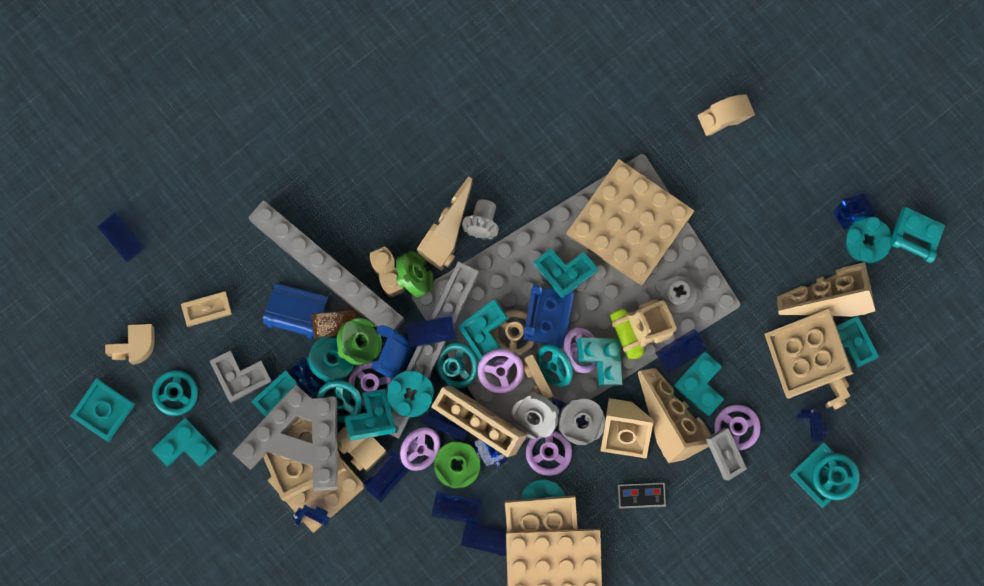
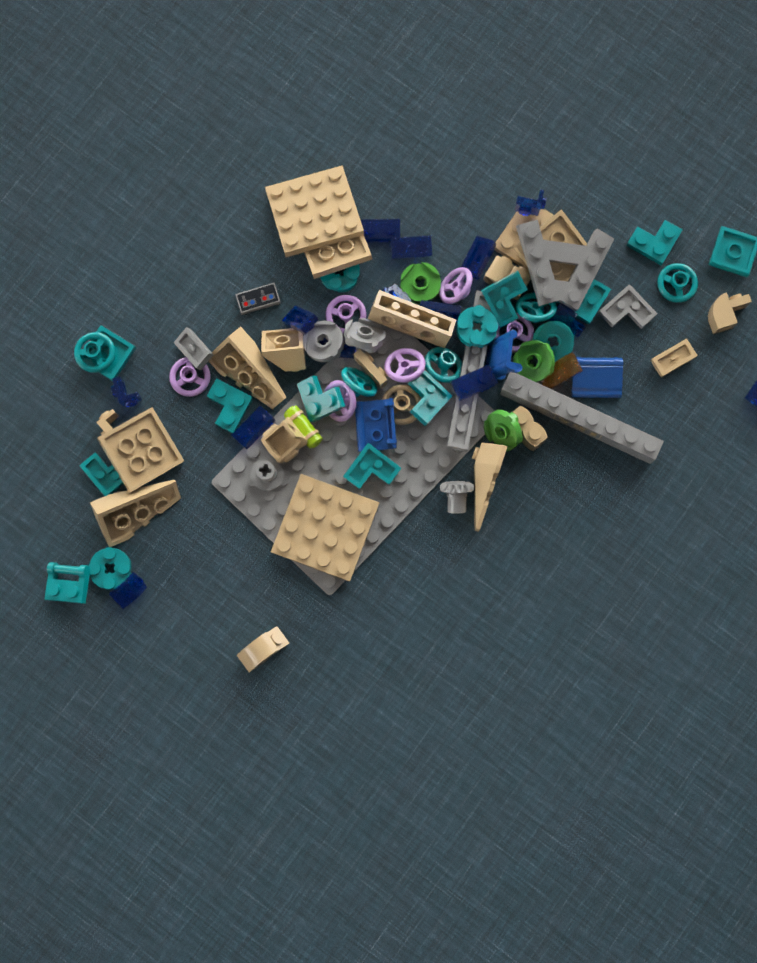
camera: 165 degrees right, 0 degrees up
(601, 453) = (300, 319): none -> clear blue plate

